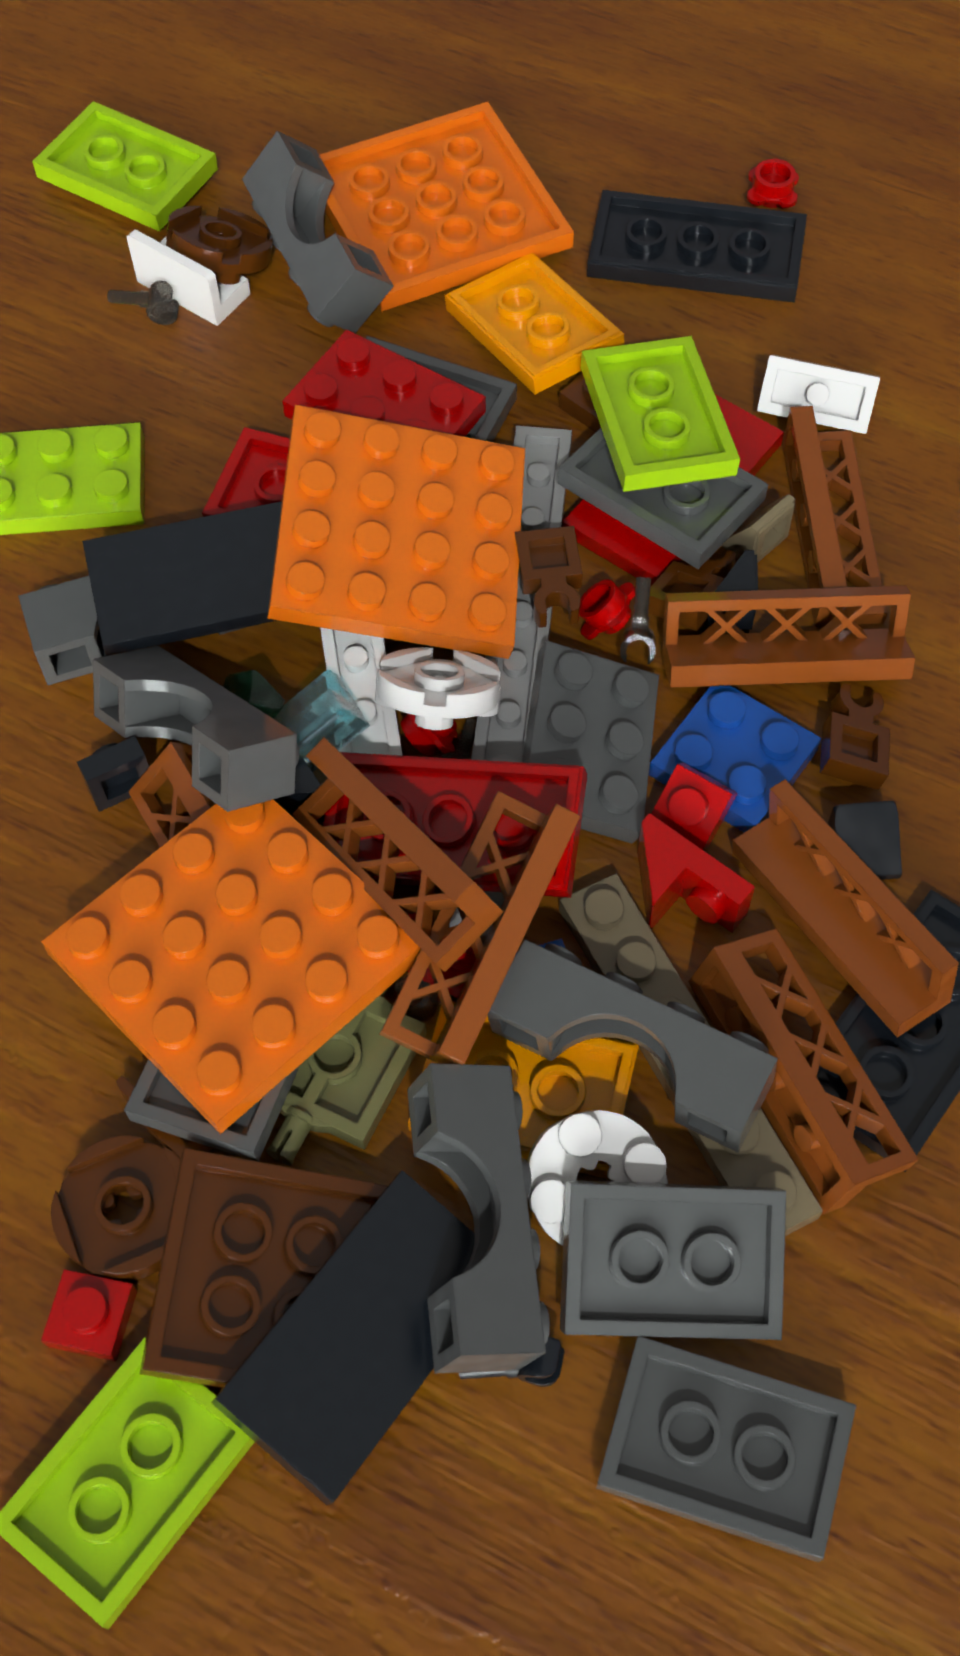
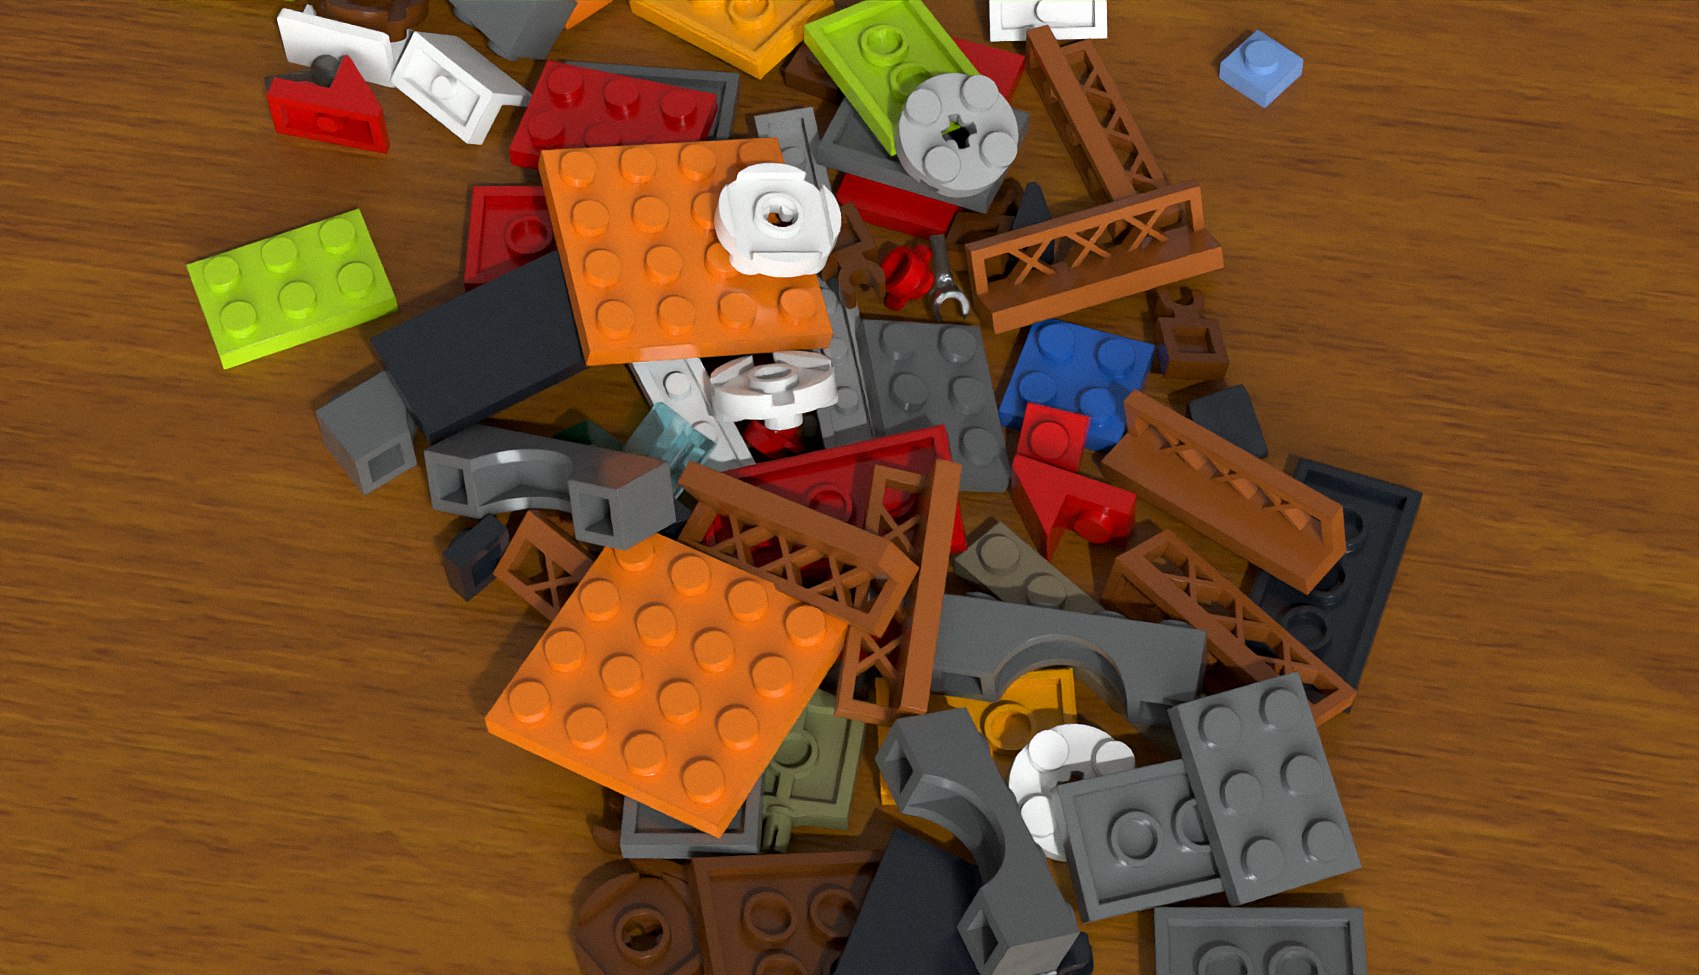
camera: 15 degrees left, 5 degrees down
(148, 333) = (336, 115): none -> red slope
(266, 333) = (456, 84): none -> white panel
(480, 553) = (766, 248): none -> white plate
(713, 460) = (940, 163): none -> light grey plate
(763, 529) = (1035, 158): dark tan slope -> none
(789, 1246) = (1264, 788): none -> dark grey plate

